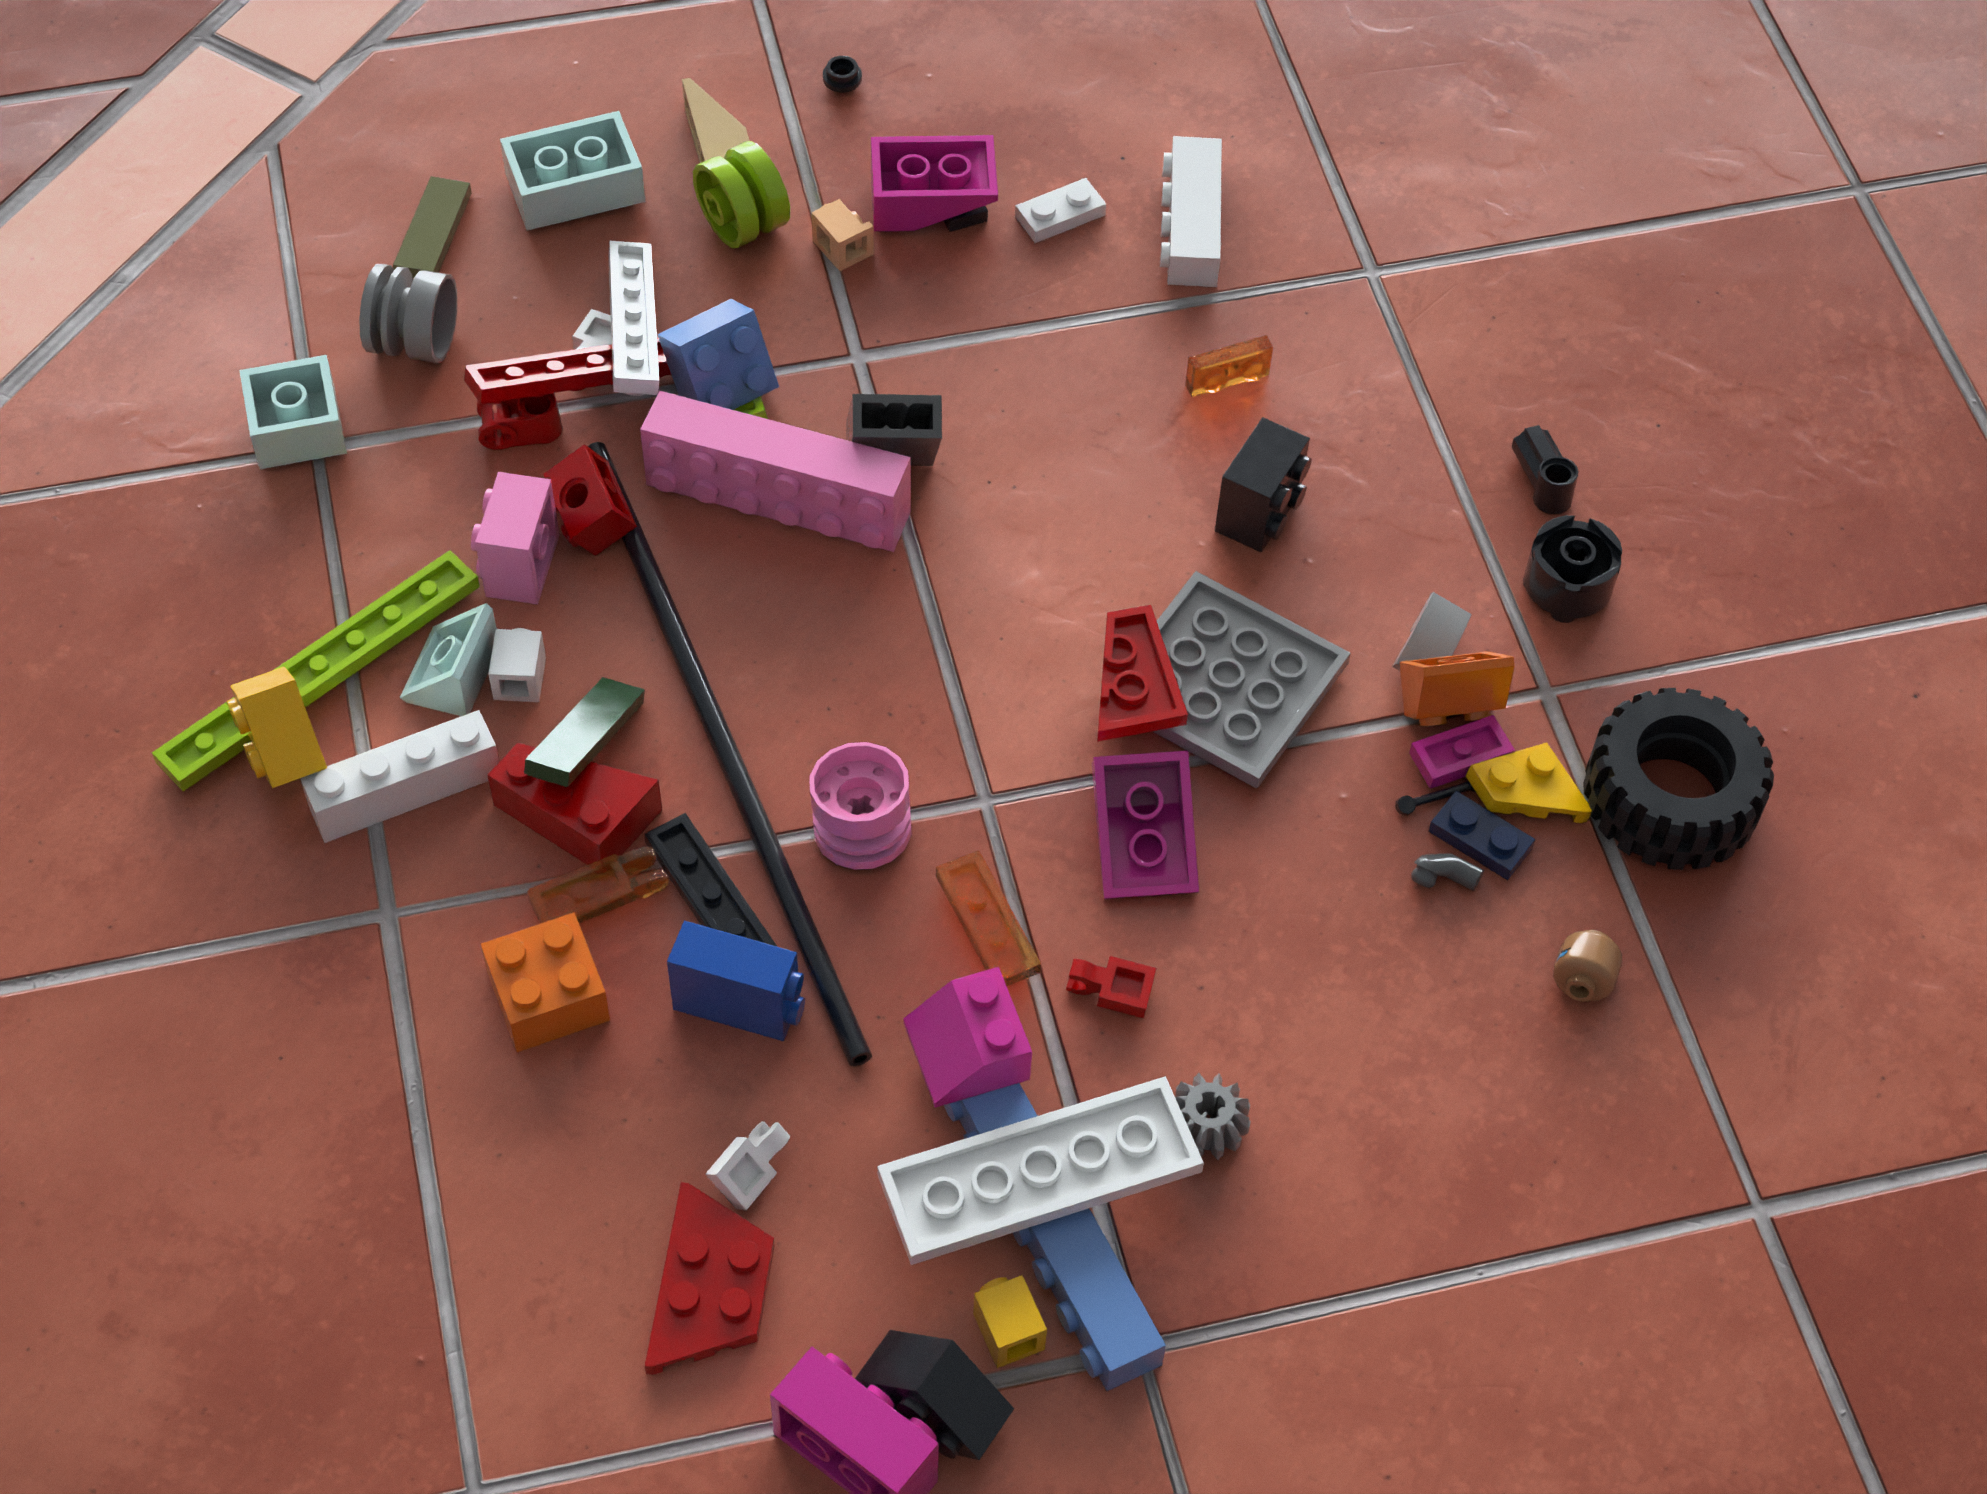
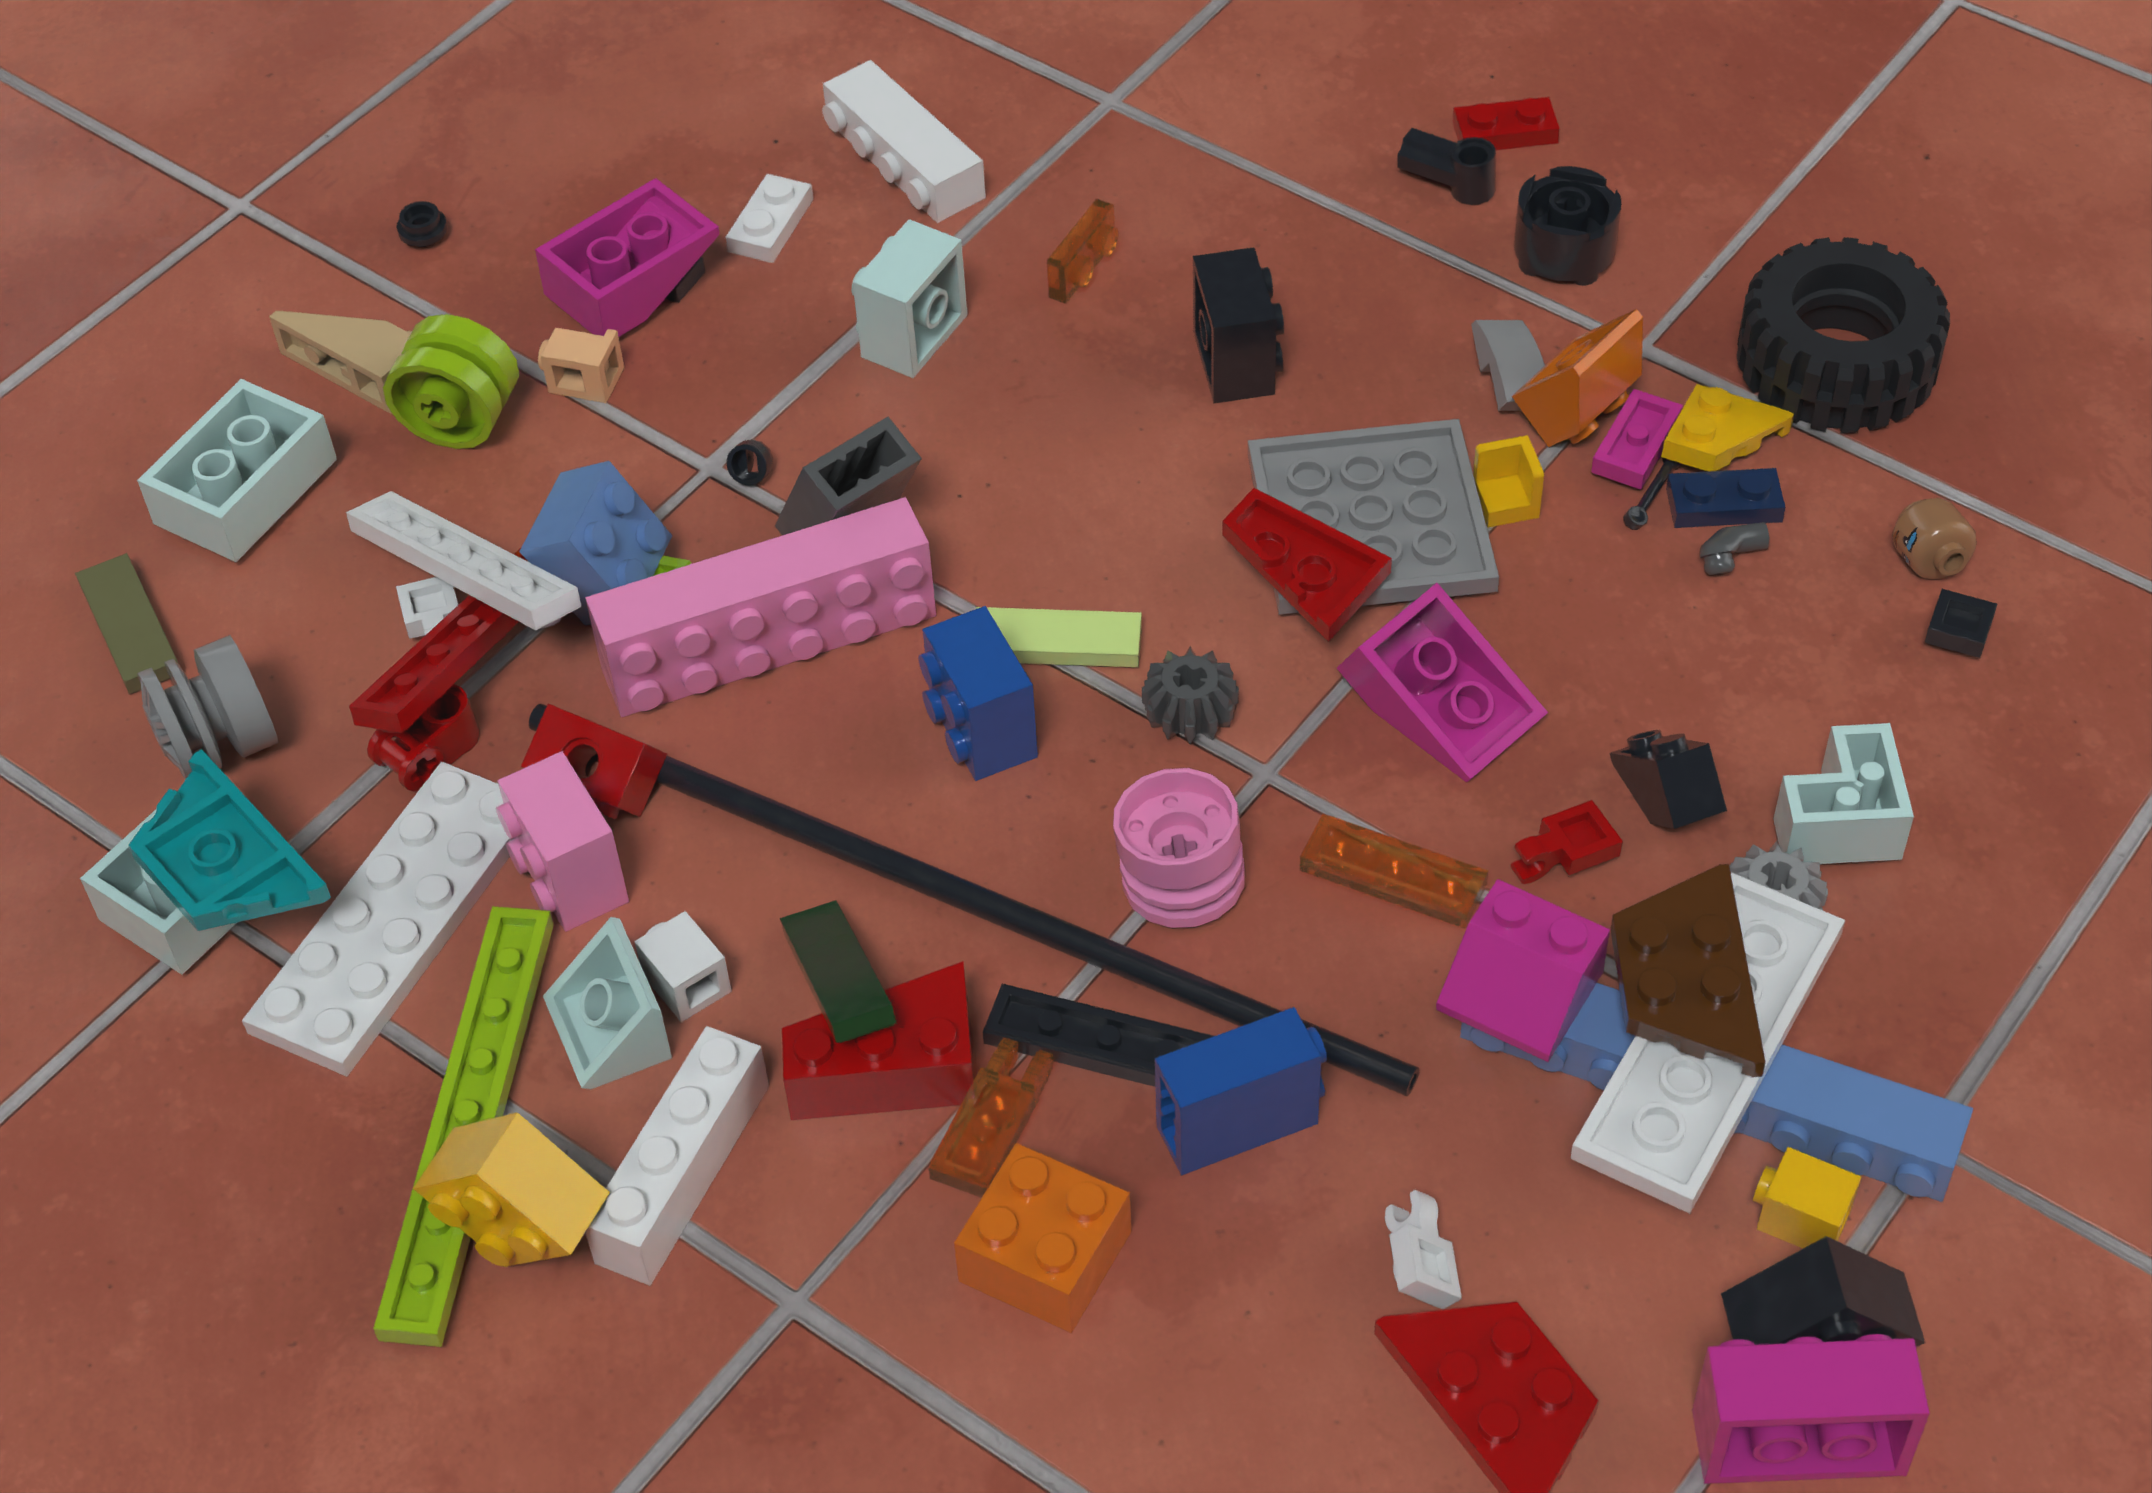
camera: 35 degrees left, 5 degrees down
(315, 408) = (221, 854): none -> teal wing
(386, 519) = (386, 923): none -> white plate
(843, 618) = (978, 693): none -> blue brick
(878, 370) = (741, 461): none -> black hinge
(947, 618) = (1071, 636): none -> yellowish green tile
(981, 714) = (1190, 695): none -> dark grey gear
(1063, 1115) = (1688, 971): none -> reddish brown wing
(1074, 325) = (910, 298): none -> light aqua brick
(1222, 992) = (1670, 778): none -> black slope
(1314, 1103) = (1854, 807): none -> light aqua brick
(1337, 719) = (1508, 480): none -> yellow panel
(1542, 1036) = (1961, 623): none -> black plate
(1624, 467) = (1509, 123): none -> red plate

